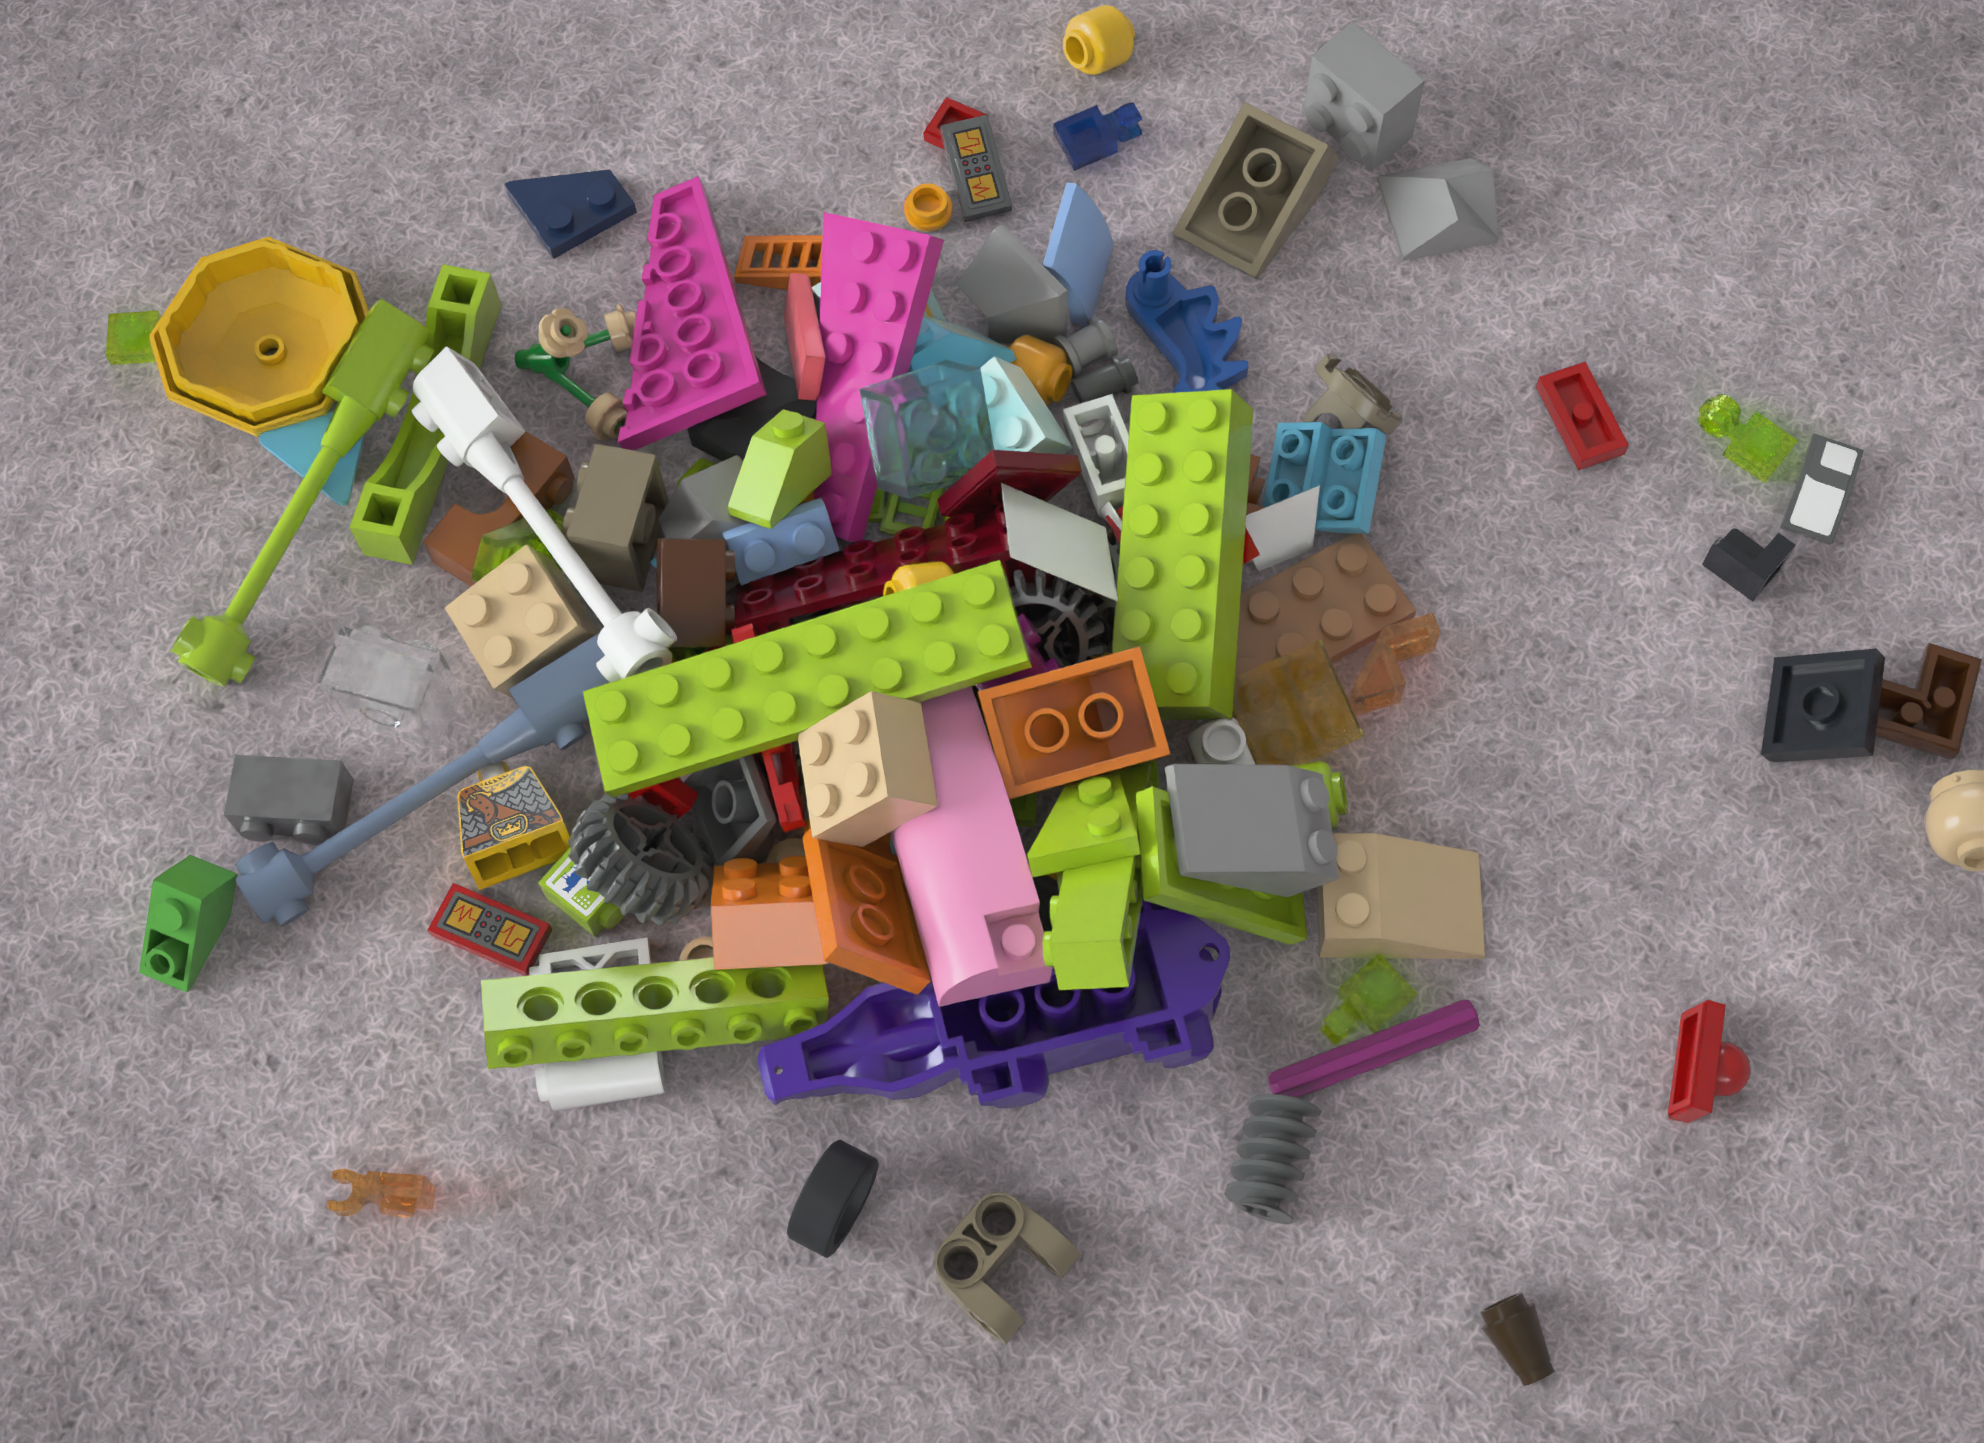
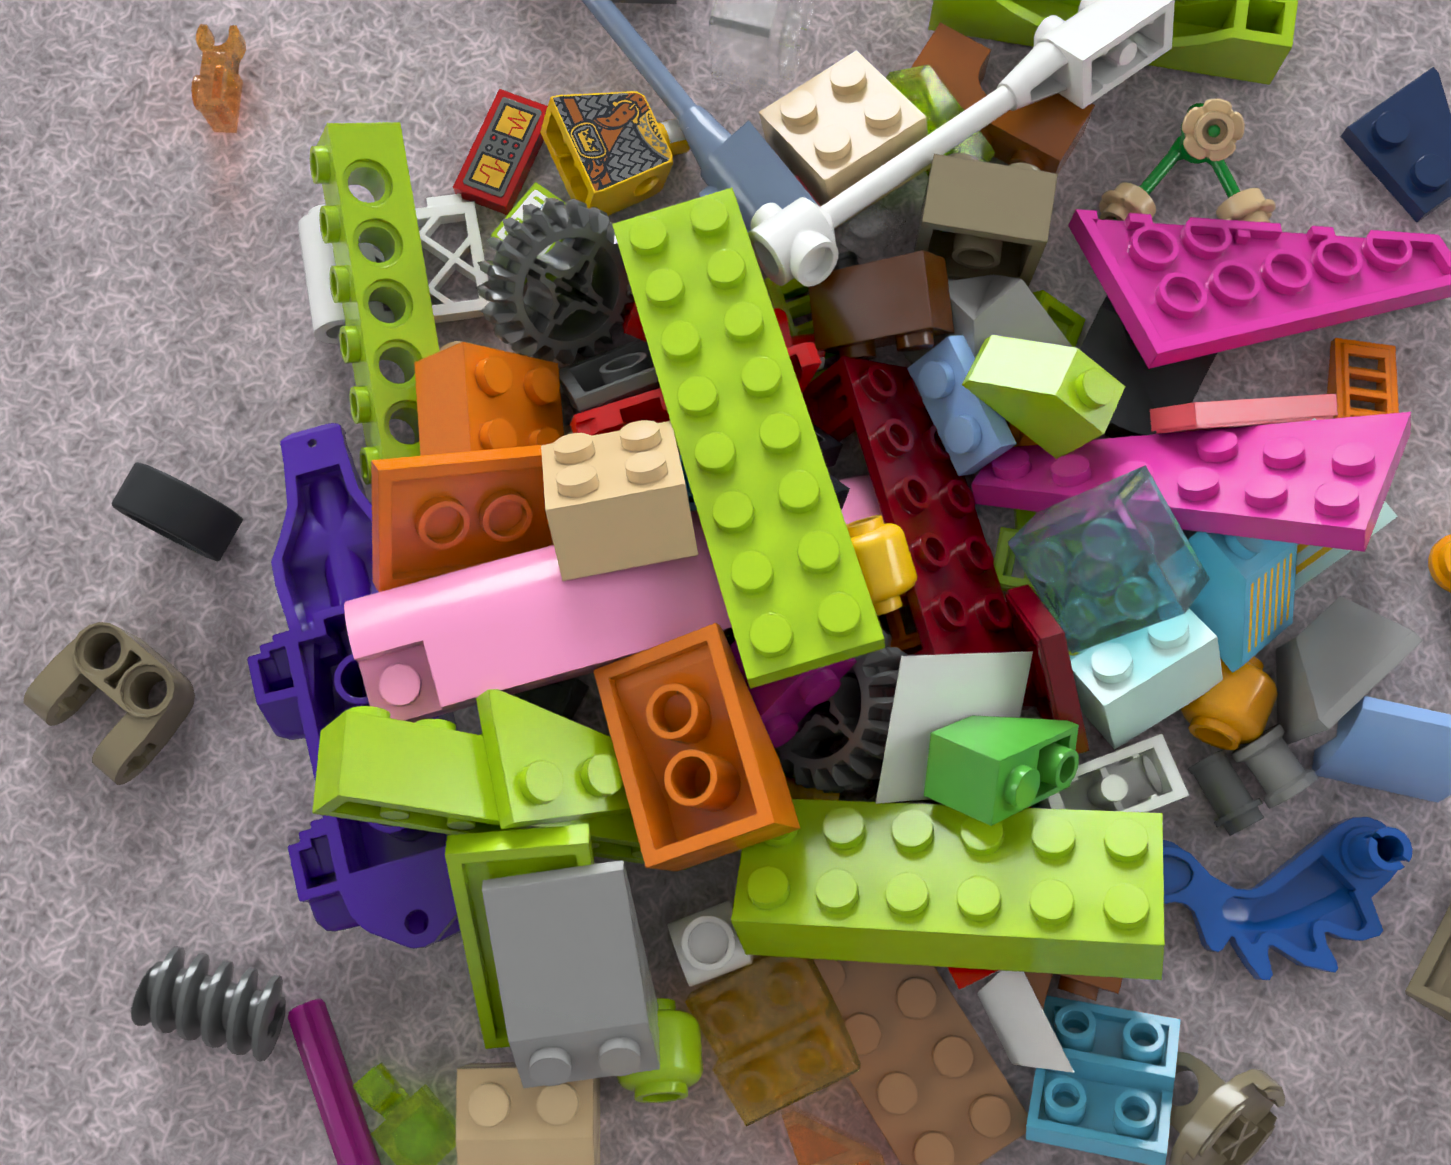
camera: 90 degrees right, 10 degrees up
(1091, 507) = (1000, 764): none -> bright green slope

